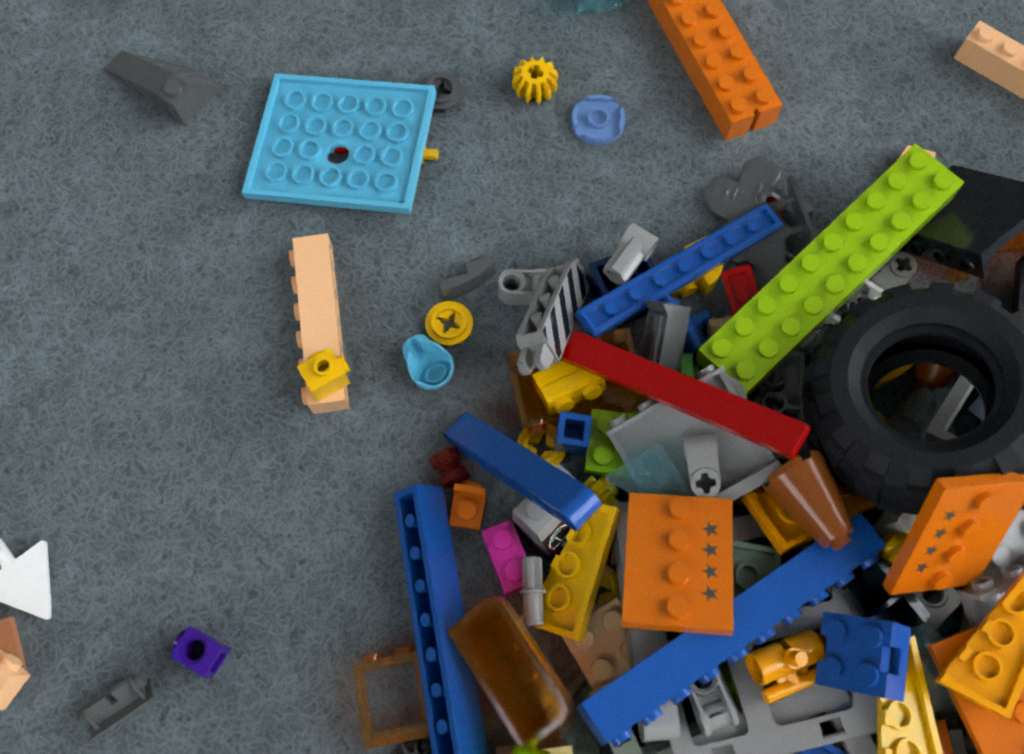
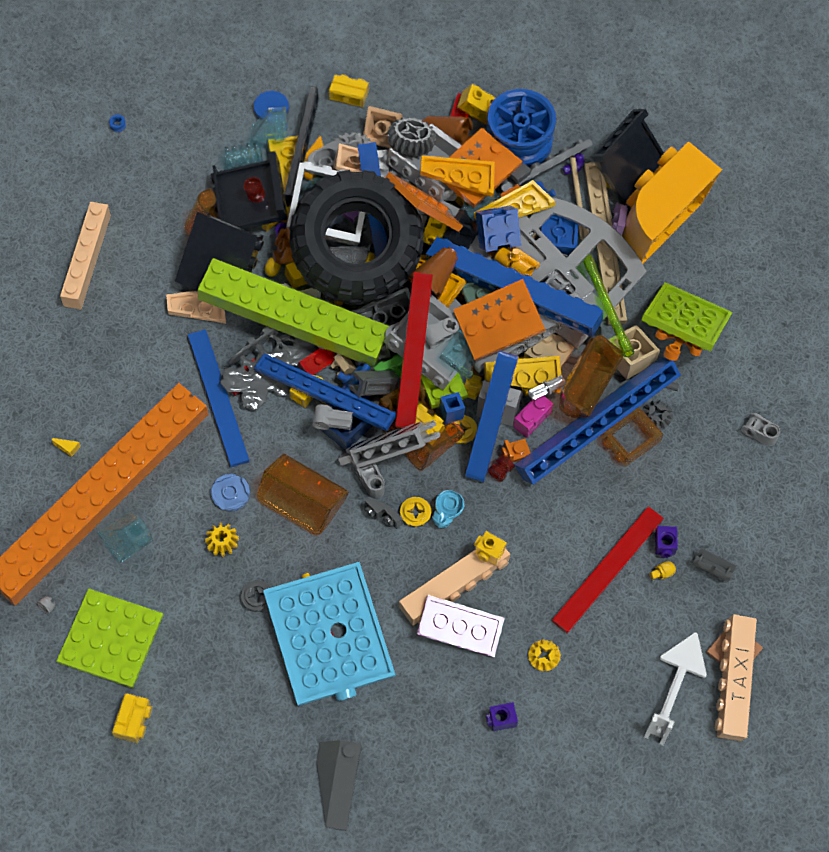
camera: 120 degrees left, 5 degrees down
(110, 301) = (508, 710): none -> dark purple brick
(163, 397) = (542, 663): none -> yellow gear
(163, 623) = (663, 570): none -> yellow cylinder
(217, 549) = (607, 570): none -> red tile
(251, 128) = (346, 694): none -> medium azure tile
(251, 295) = (460, 626): none -> tile
(550, 192) = (300, 494): none -> clear orange windscreen
(732, 156) = (218, 398): none -> blue tile

